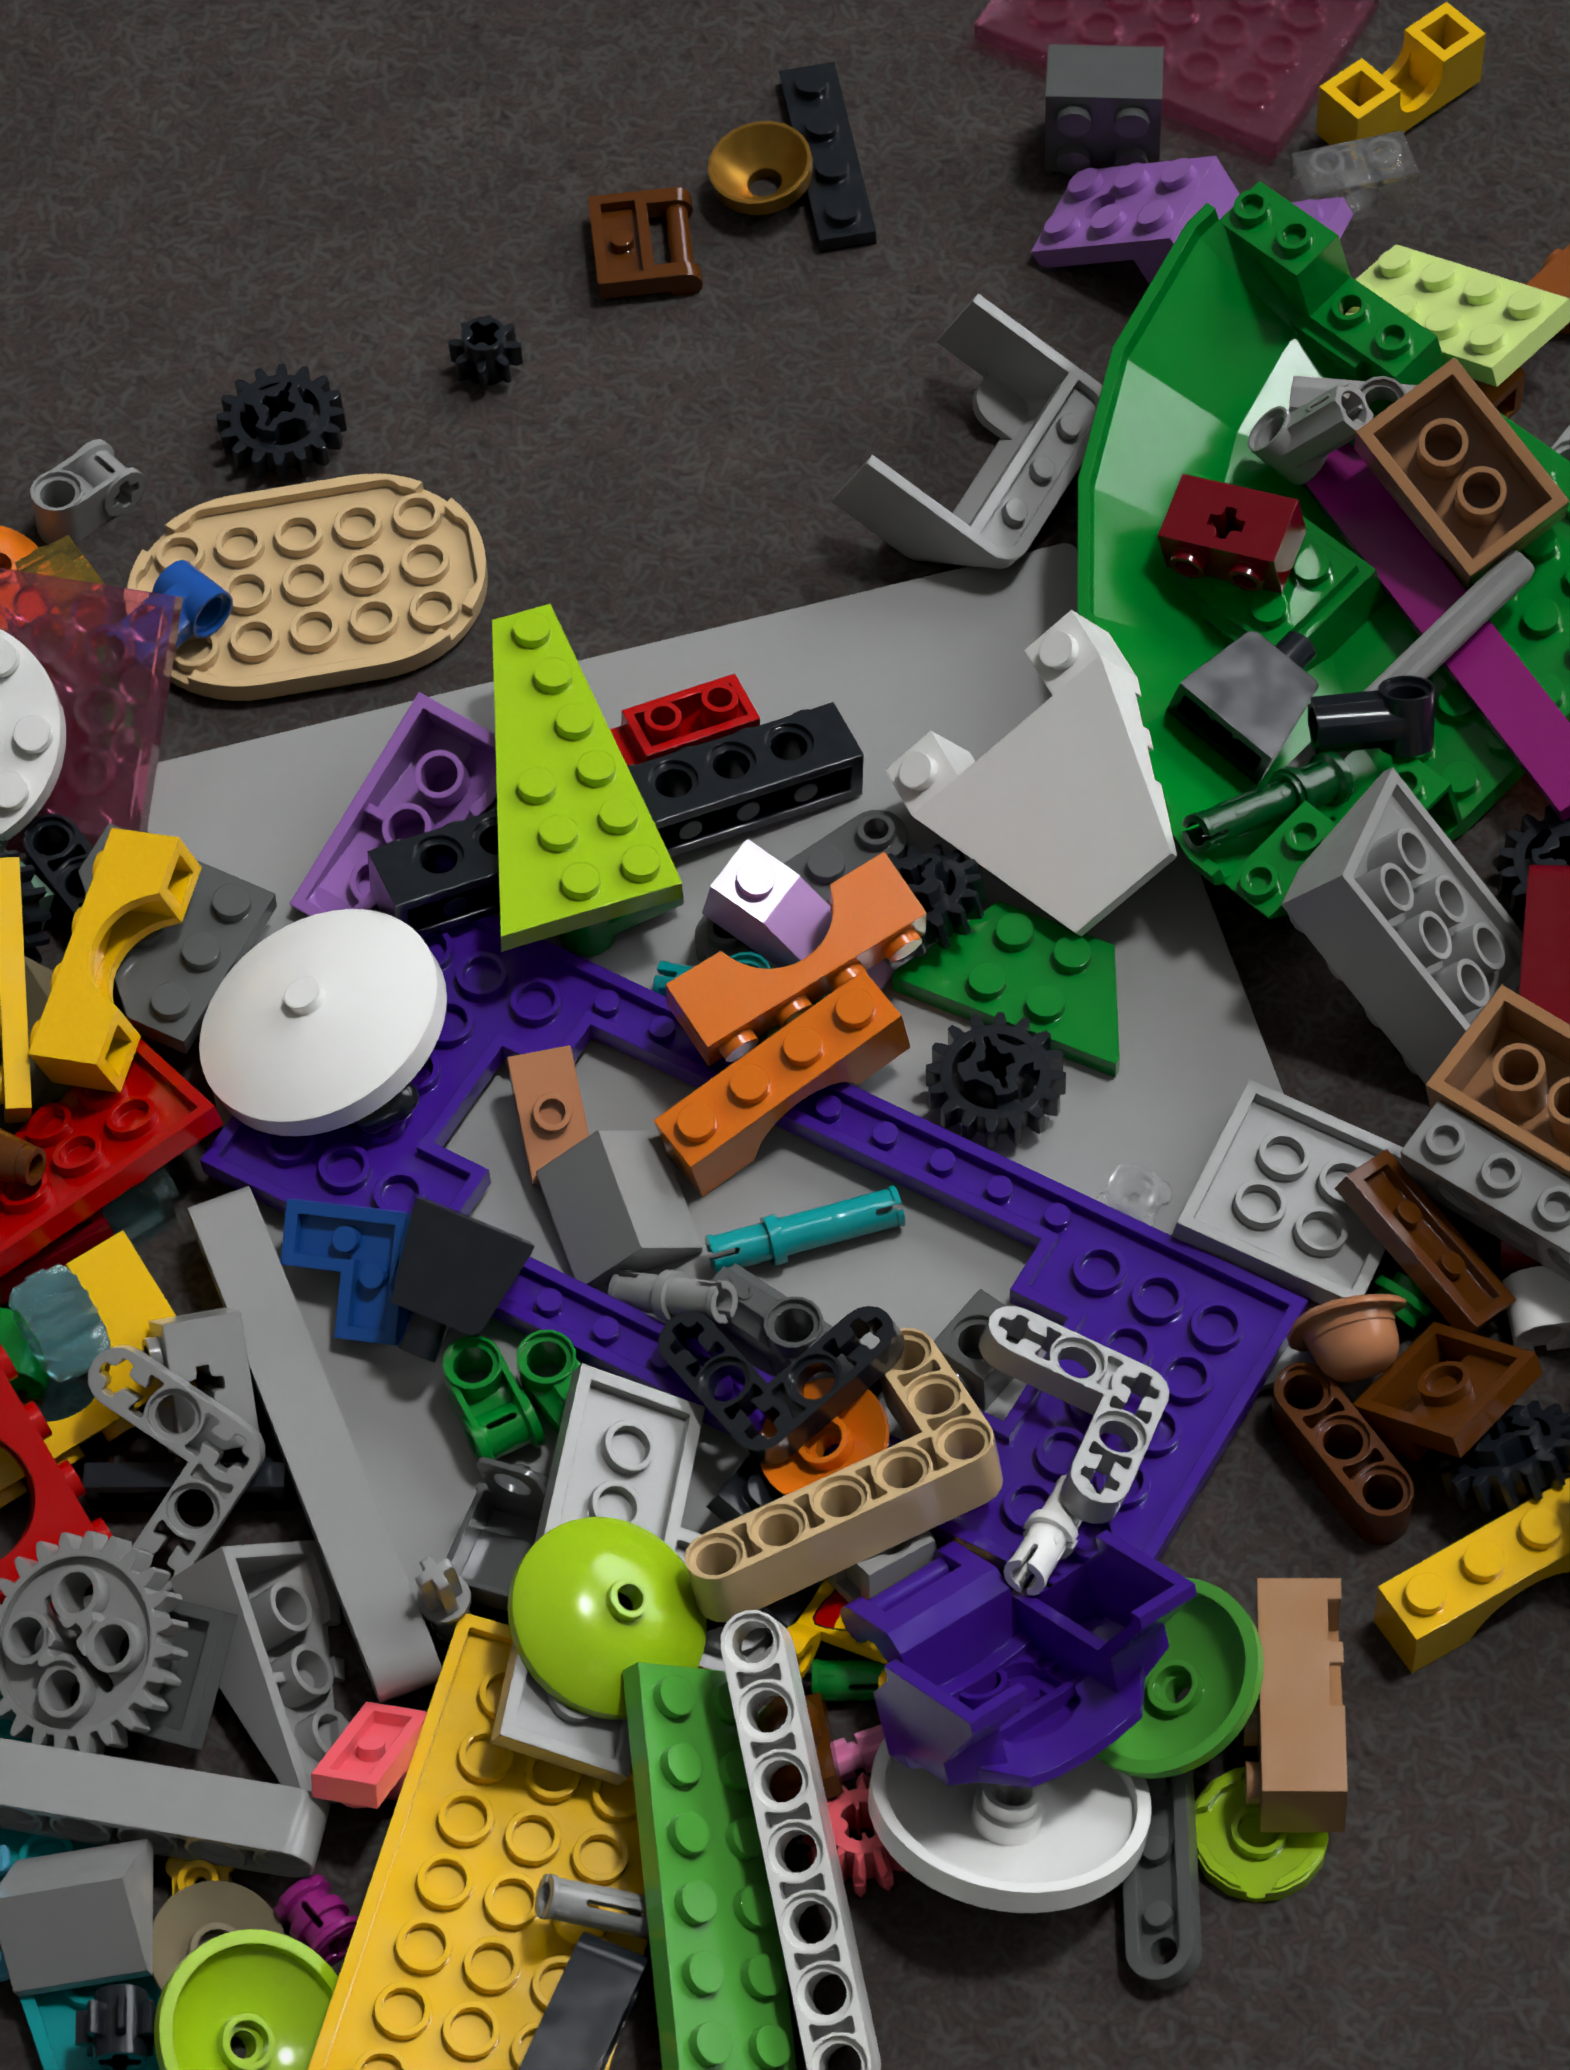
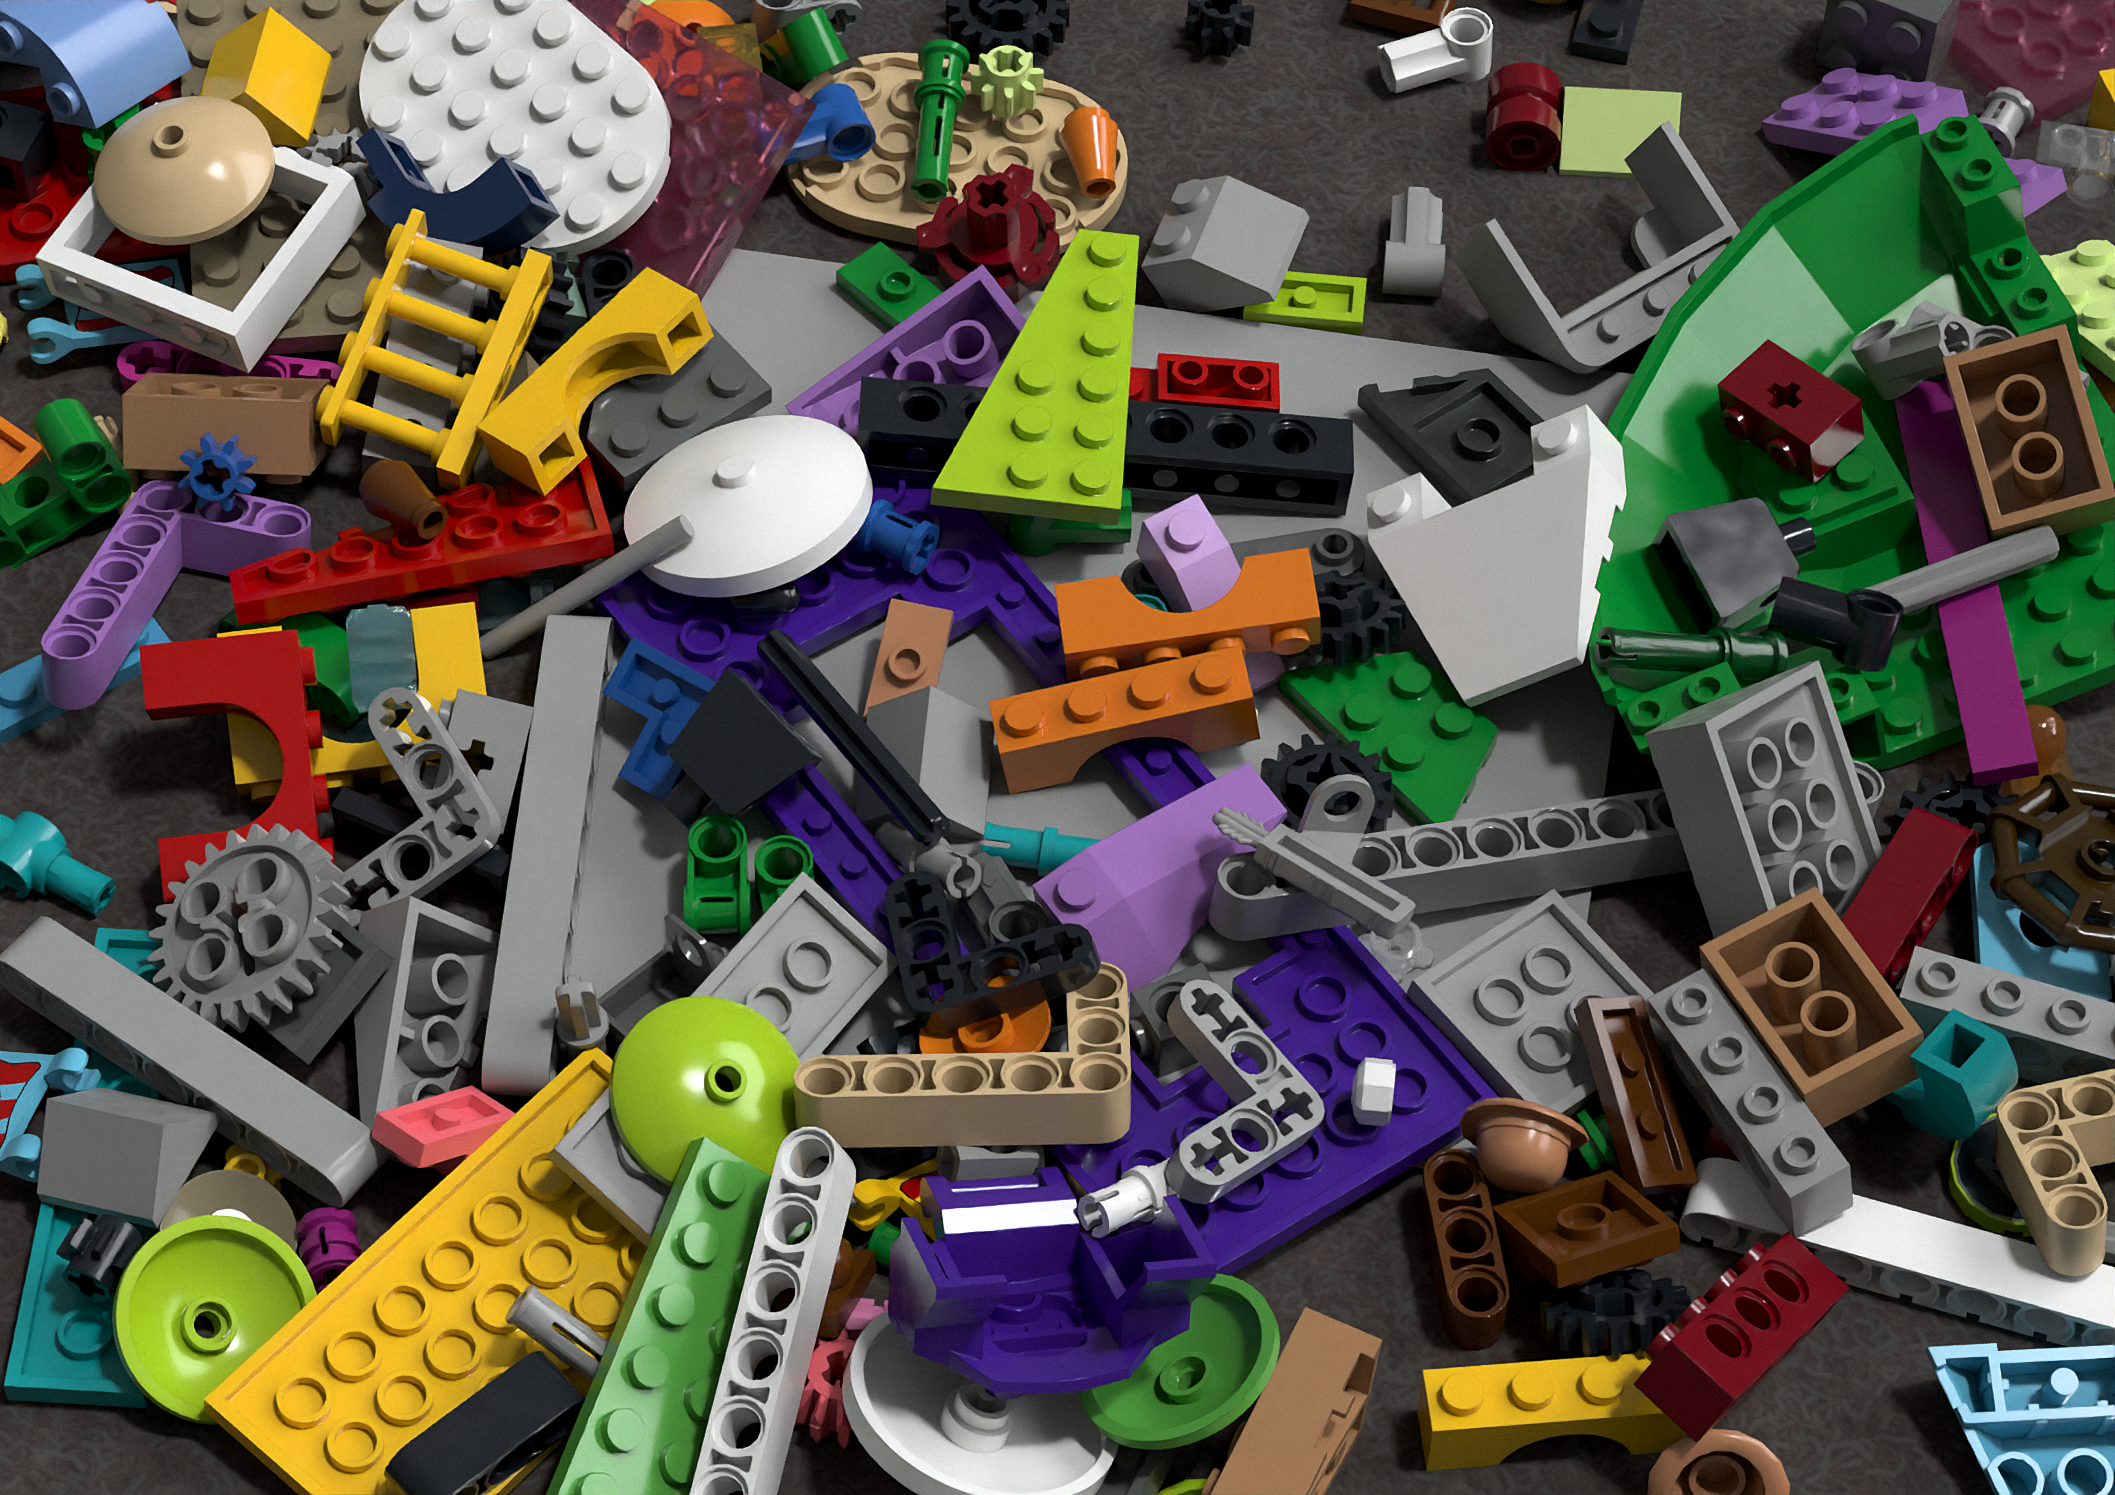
camera: 20 degrees right, 5 degrees down
(118, 538) = (802, 49): none -> green piece
(214, 1160) = (587, 586): none -> light grey bar
(273, 539) = (931, 170): none -> green pin
(326, 746) = (885, 285): none -> green plate
(327, 494) = (1007, 81): none -> yellowish green gear
(398, 652) = (996, 229): none -> dark red piece
(441, 528) = (1091, 147): none -> orange cone
(479, 993) = (897, 537): none -> blue bush
(547, 1209) = (853, 738): none -> black axle
(617, 576) = (1223, 245): none -> light grey slope
(713, 597) = (1315, 303): none -> lime plate
(715, 295) = (1454, 51): none -> white piece
(786, 510) = (1414, 253): none -> light grey piece
(818, 335) = (1523, 117): none -> dark red wheel
(901, 1219) = (1155, 879): none -> medium lavender wedge
(902, 310) = (1608, 125): none -> yellowish green slope
(940, 673) = (1459, 429): none -> pearl dark grey wing
(1047, 1143) = (1322, 855): none -> light grey piece
(1152, 1094) = (1479, 861): none -> light grey beam
(1201, 1344) = (1373, 1091): none -> white tile
(1256, 157) = (2006, 123): none -> light grey bush

